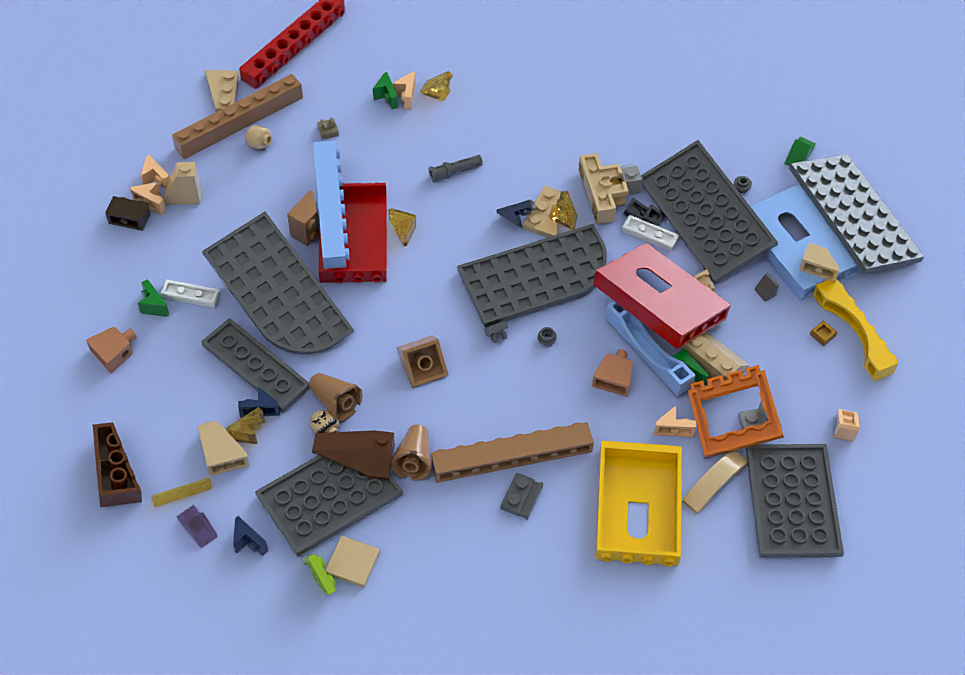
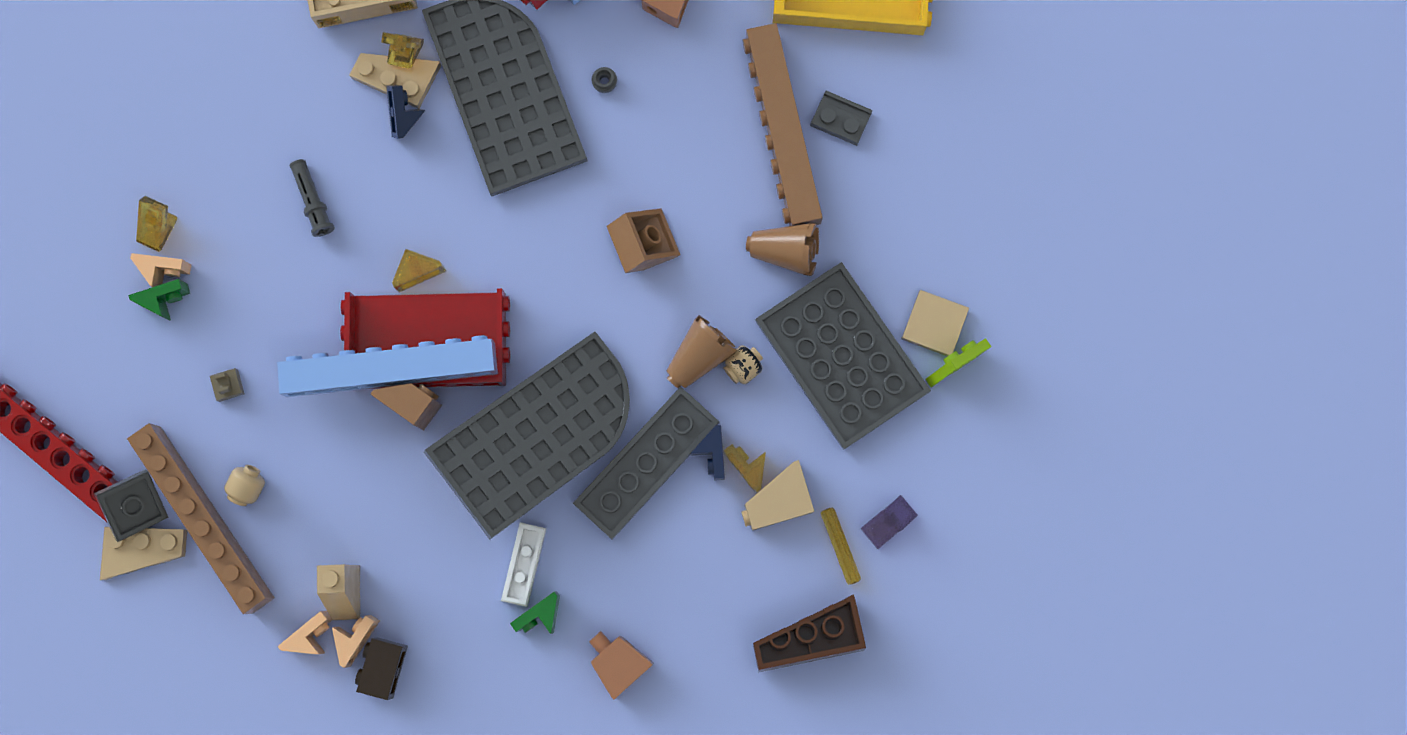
camera: 85 degrees left, 25 degrees up
(245, 535) = (903, 459): dark blue slope -> none
(248, 77) = (131, 505): none -> dark grey tile
(358, 450) = (792, 312): reddish brown wedge -> none
(496, 329) = (594, 143): dark grey tile -> none

